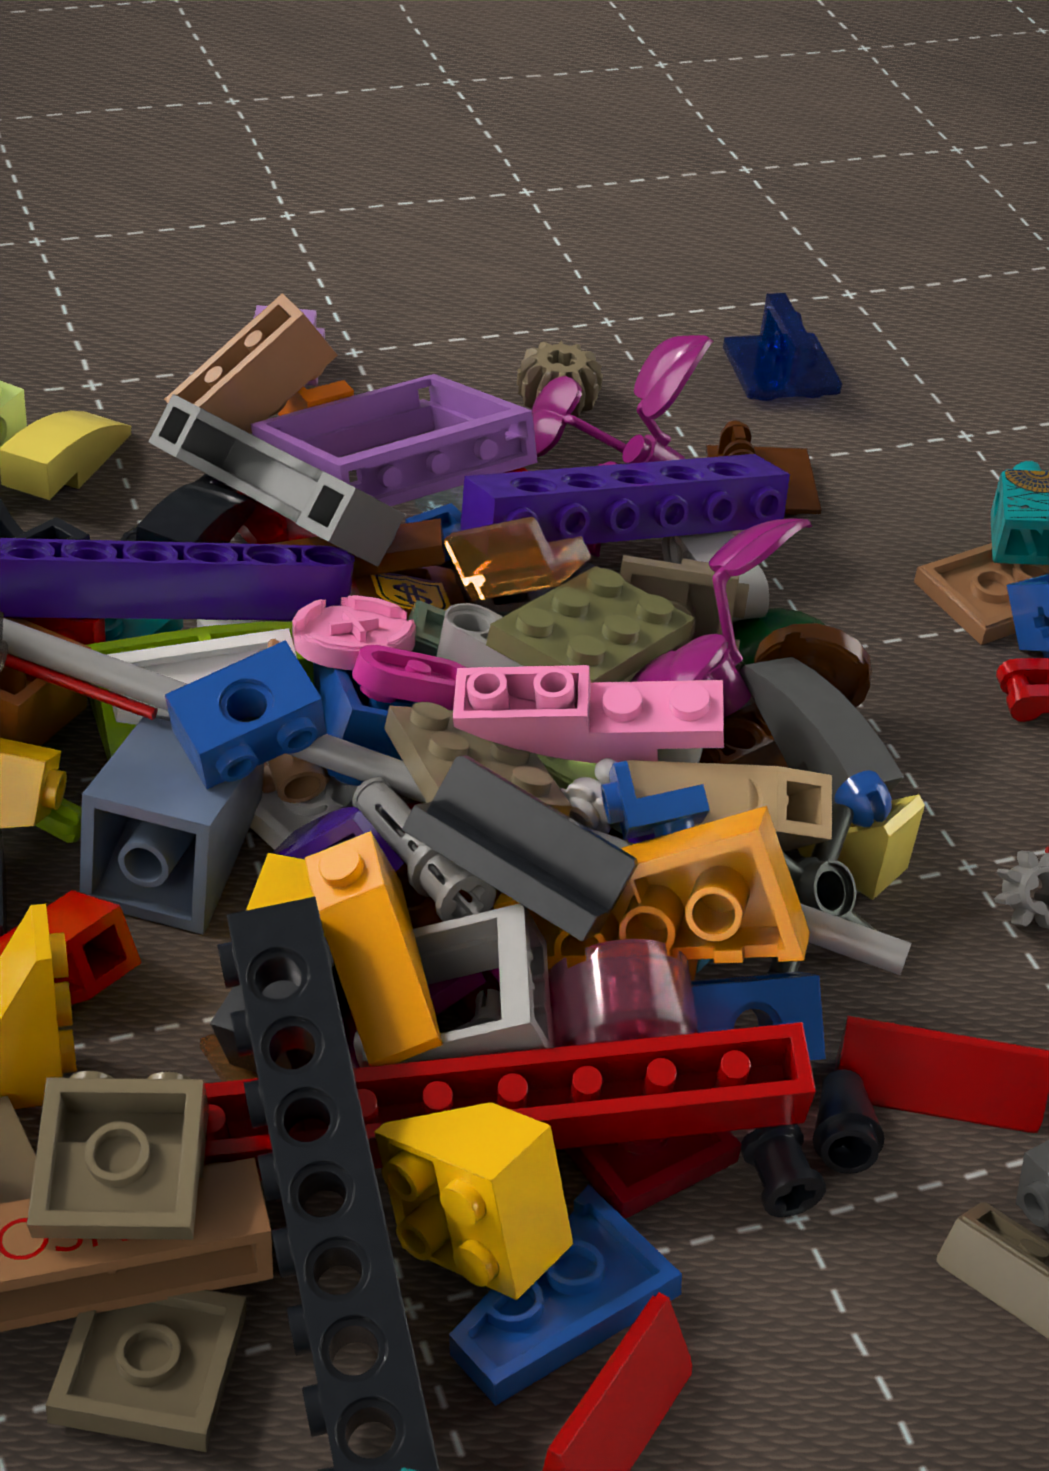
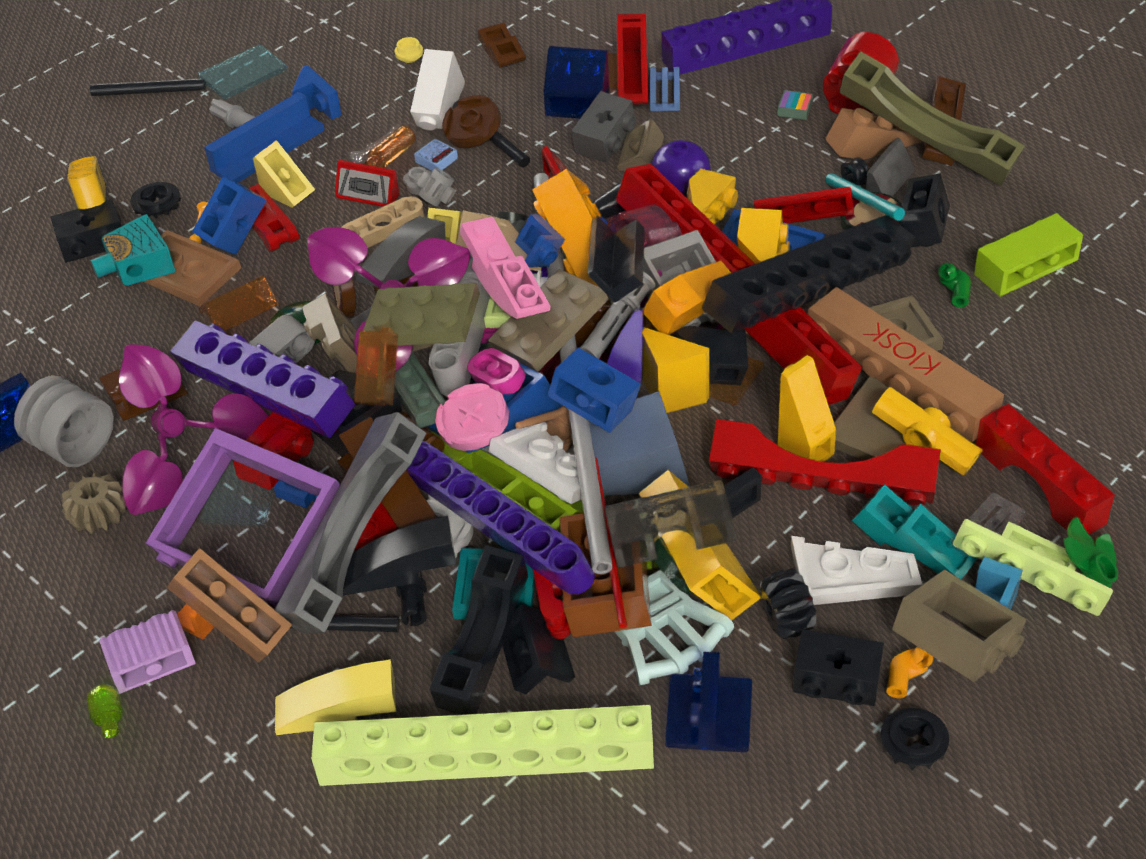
camera: 110 degrees left, 5 degrees up
(119, 1157) = (853, 326): dark tan plate -> none
(231, 314) = (105, 709): none -> clear neon green cylinder
(729, 378) = (63, 421): none -> light grey wheel
(731, 1230) = (712, 193): none -> yellow slope
(867, 798) = (450, 216): blue hinge -> none
(873, 594) = (240, 304): none -> clear orange panel
(890, 1281) = (679, 162): none -> dark purple cylinder
(993, 789) = (395, 213): none -> tan beam

